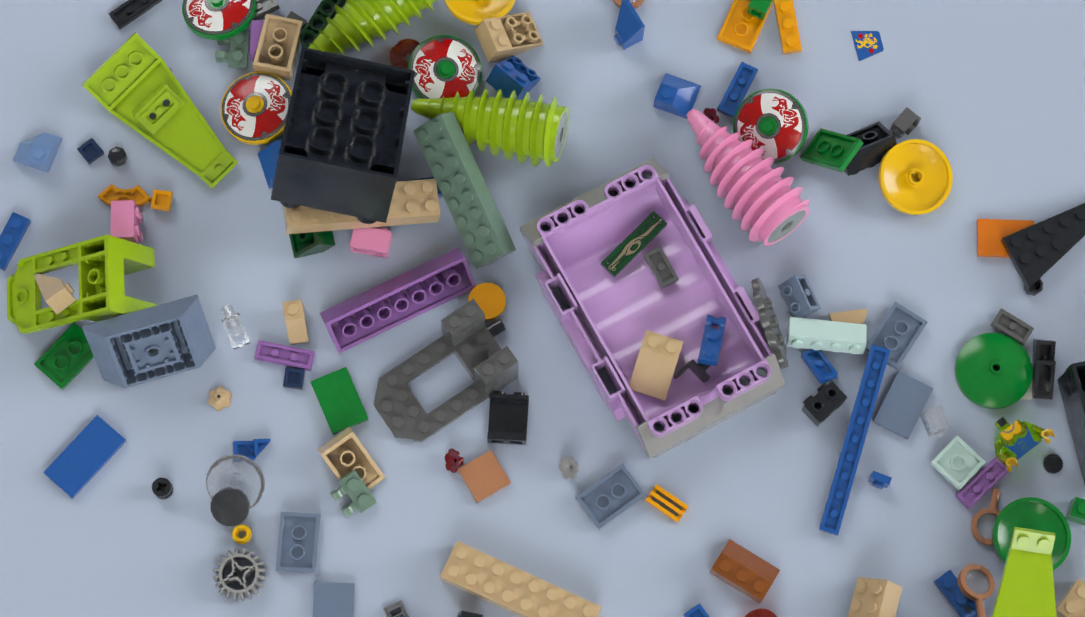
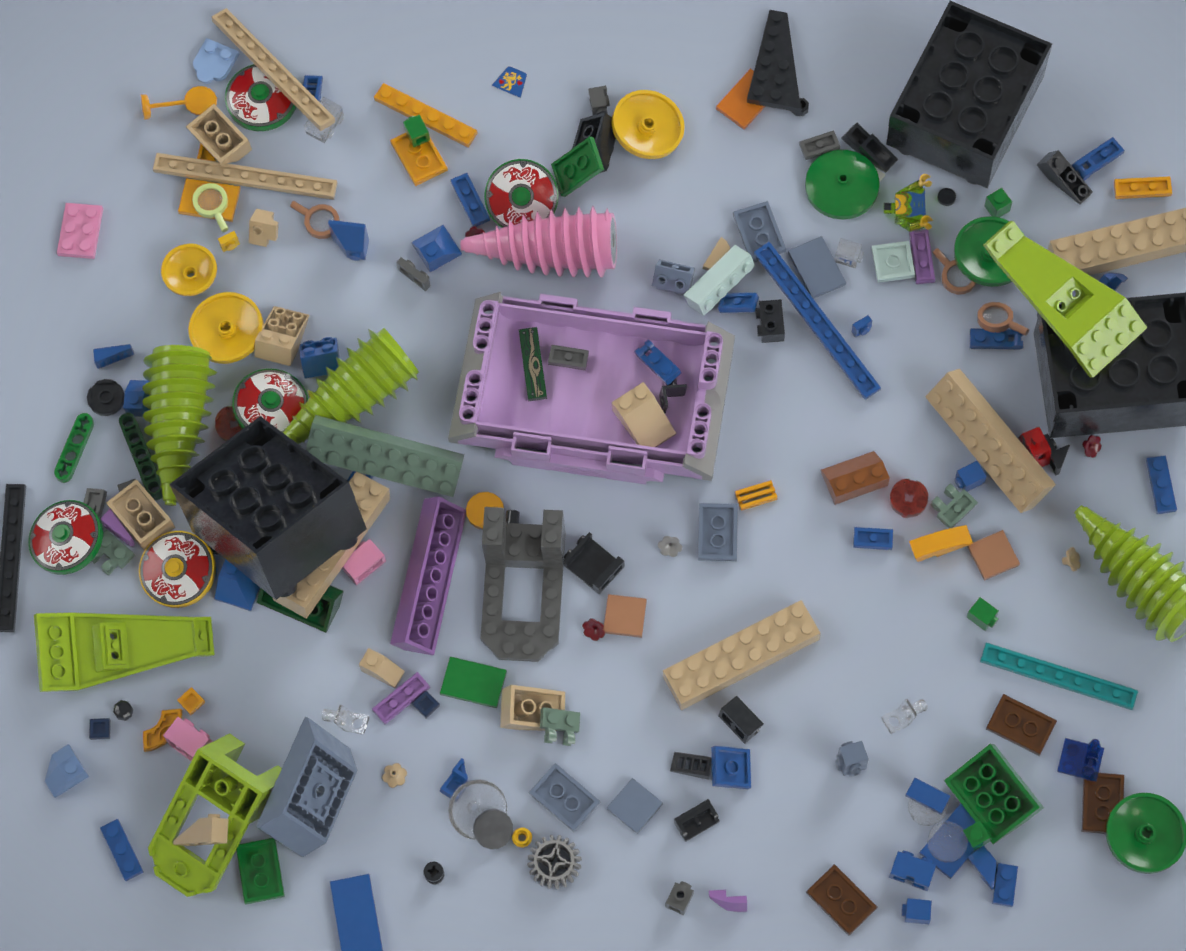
camera: 45 degrees left, 5 degrees down
(640, 87) = (409, 270): none -> dark grey plate
(769, 323) = (676, 309): dark grey plate -> none

